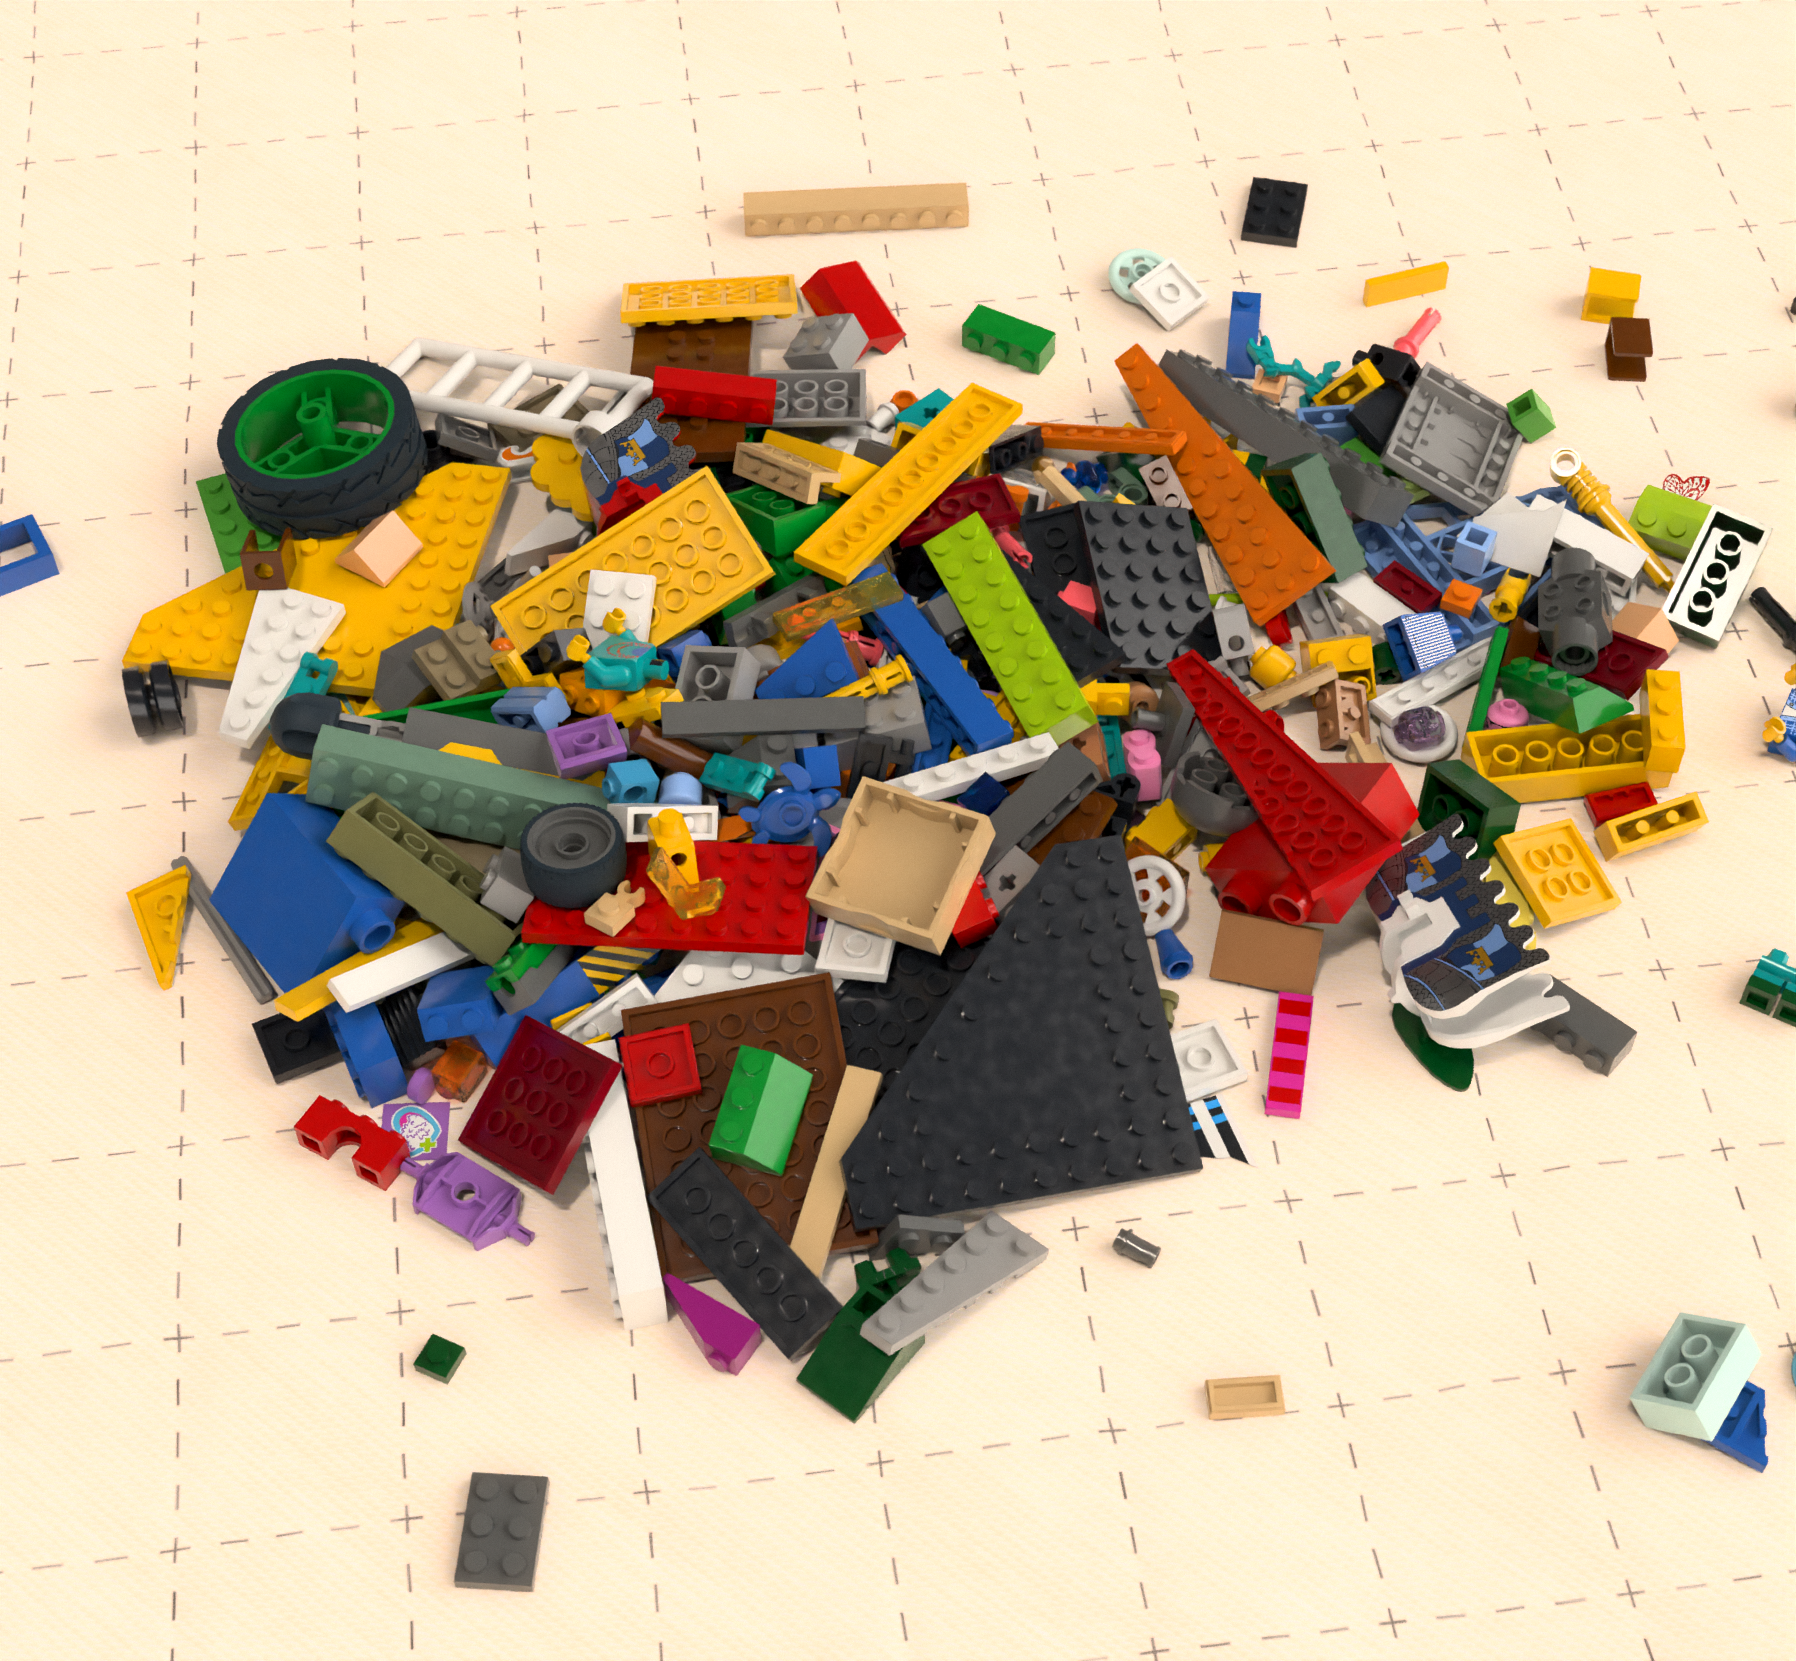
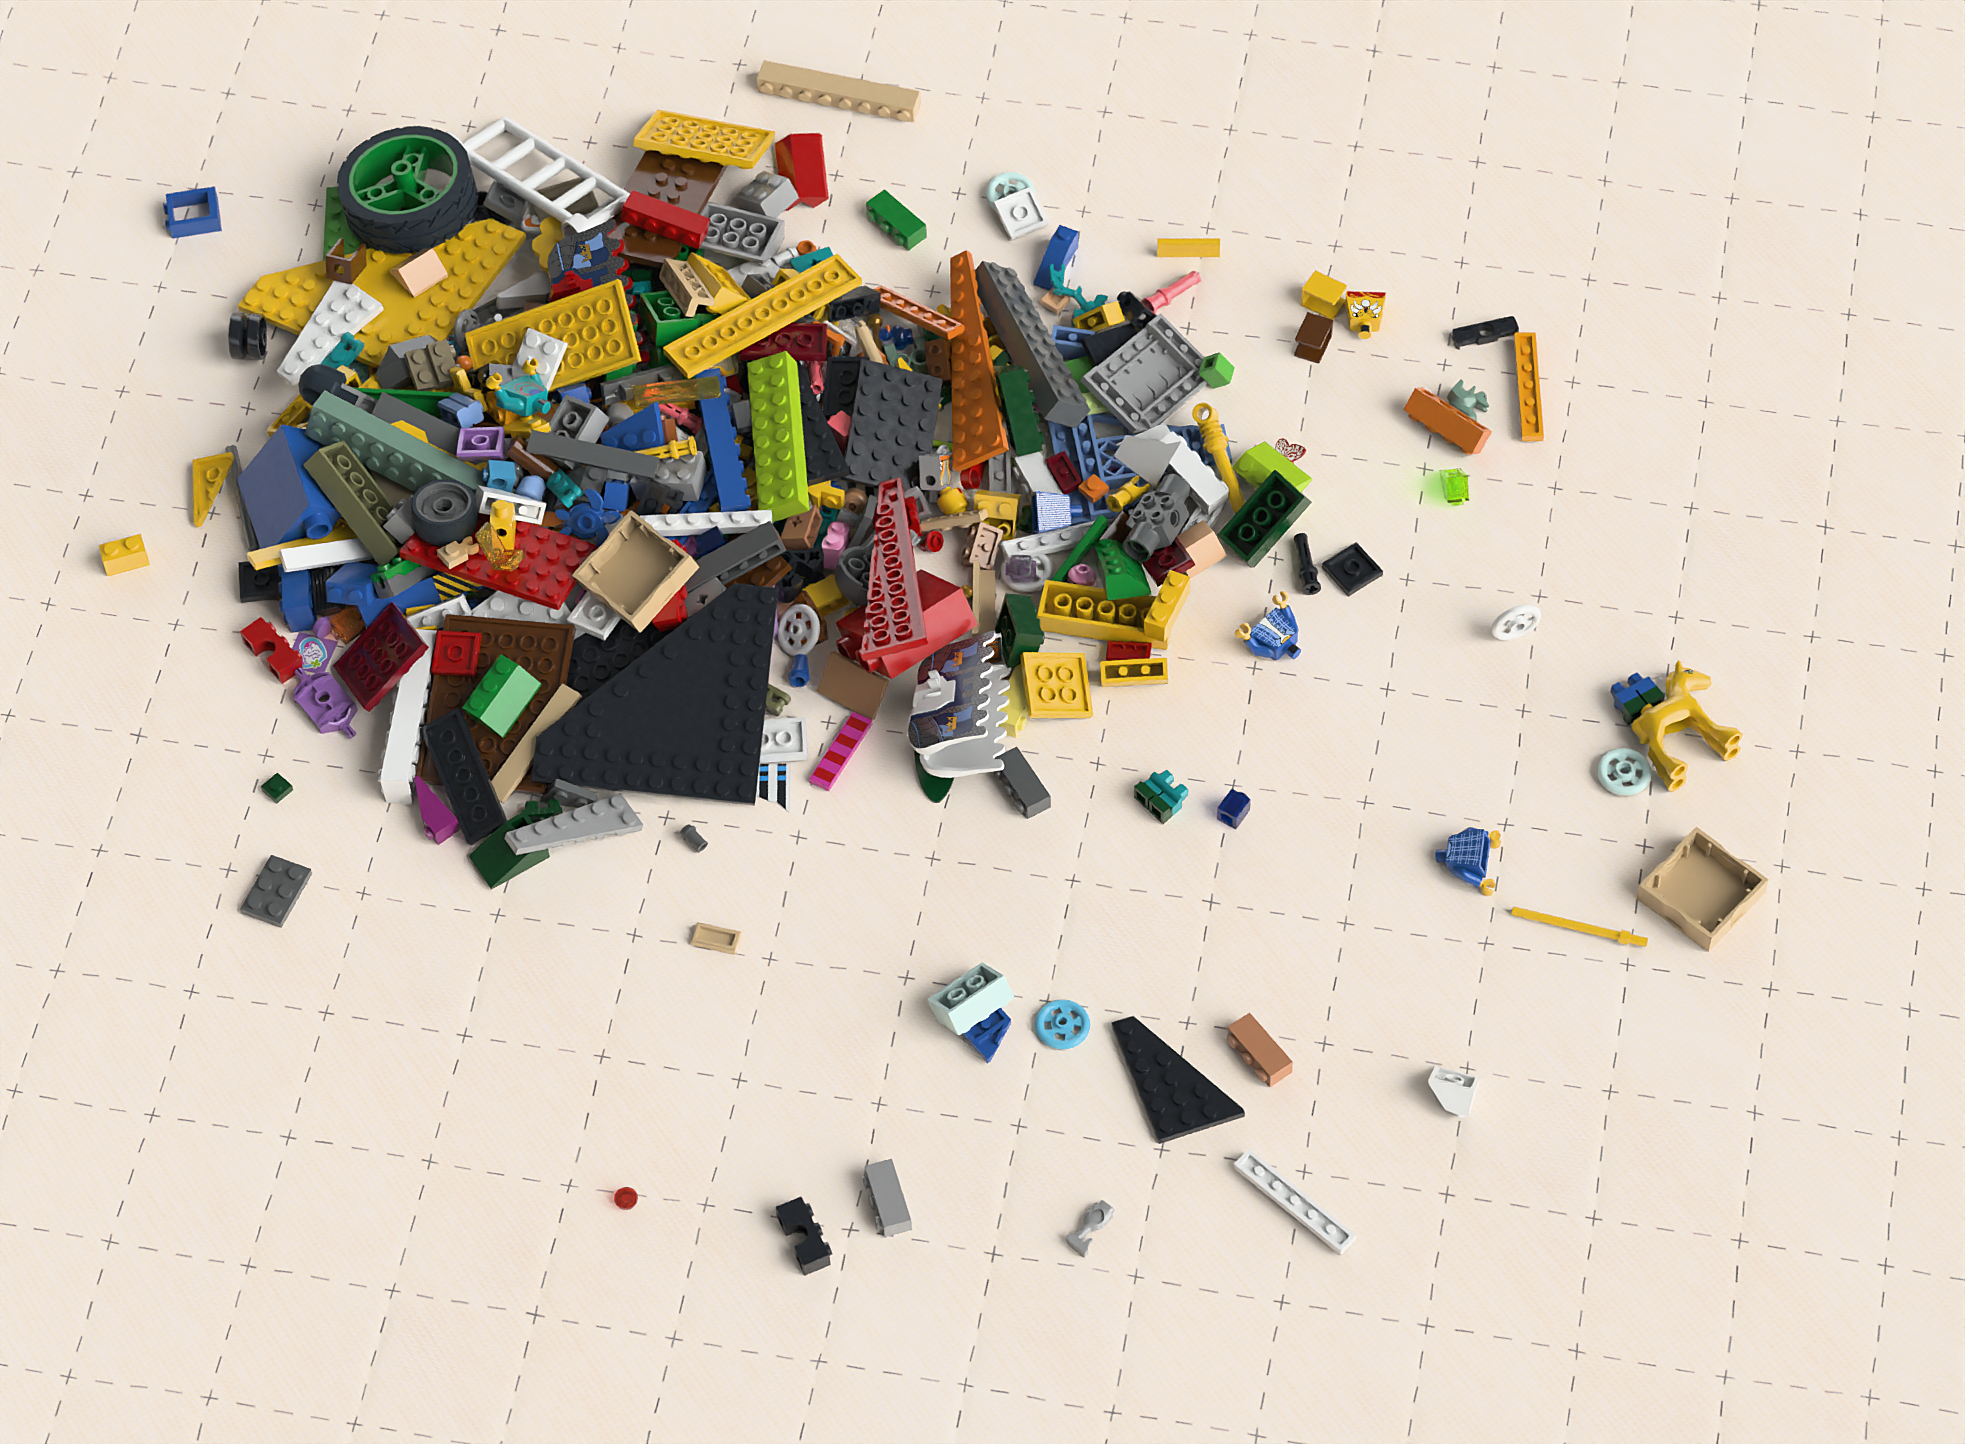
camera: 20 degrees right, 5 degrees up
(63, 1060) = (124, 555): none -> yellow brick
(1274, 212) = (1130, 166): black plate -> none
(1473, 549) = (1114, 457): light blue brick -> none
(1671, 305) = (1365, 311): none -> yellow torso

